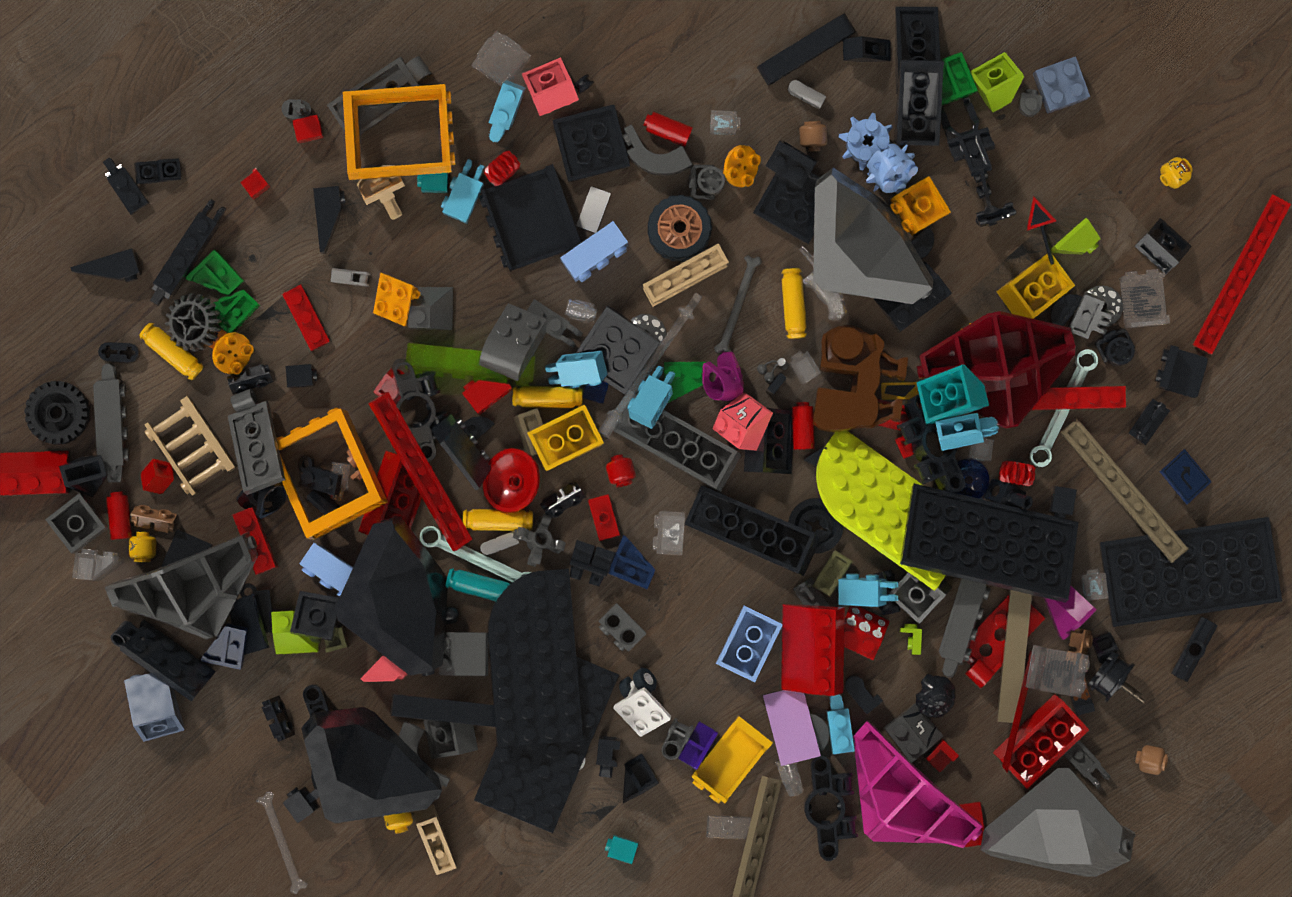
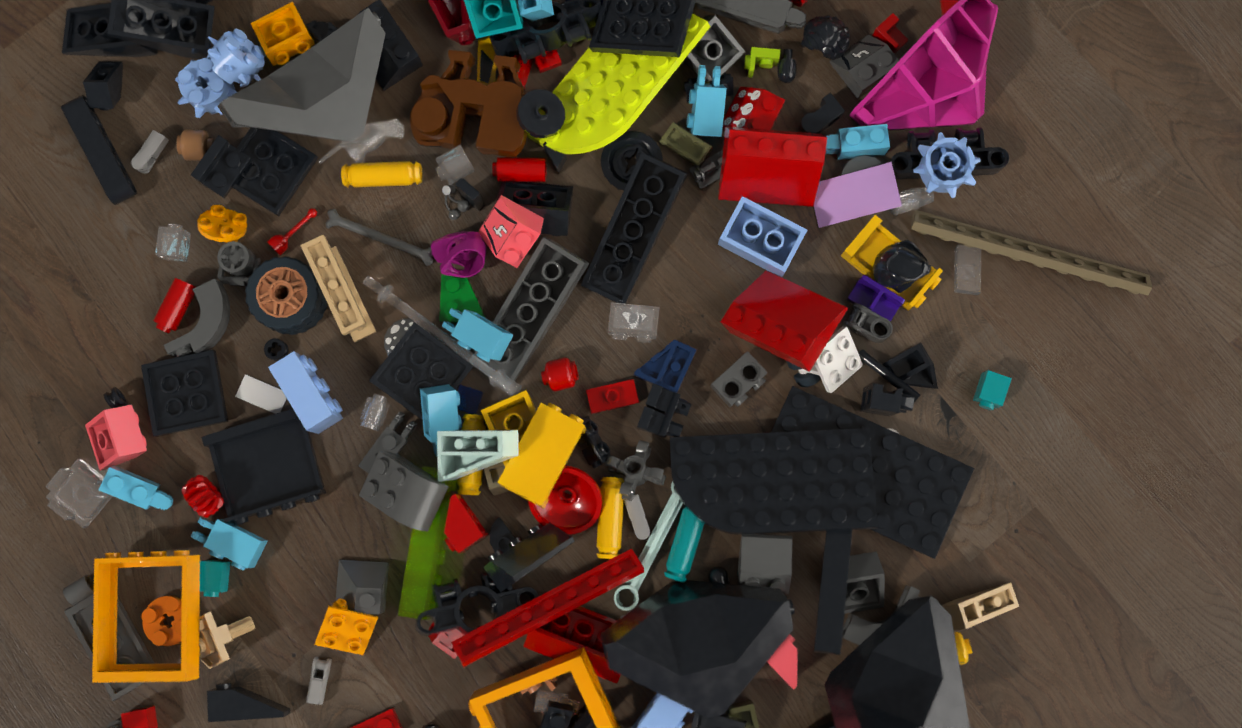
camera: 80 degrees left, 5 degrees down
(392, 156) = (153, 621): none -> orange plate
(548, 459) = (542, 454): none -> yellow panel
(549, 400) = (473, 450): none -> light aqua wedge
(631, 758) = (887, 374): none -> black bar
(637, 215) = (271, 345): none -> black bush
(676, 664) = (784, 319): none -> red slope
(727, 765) = (900, 265): none -> black helmet
(728, 216) = (280, 243): none -> red hinge
(825, 810) = (953, 154): none -> light blue brick
(846, 433) = (532, 121): none -> black plate
(907, 662) = (787, 67): none -> black cylinder

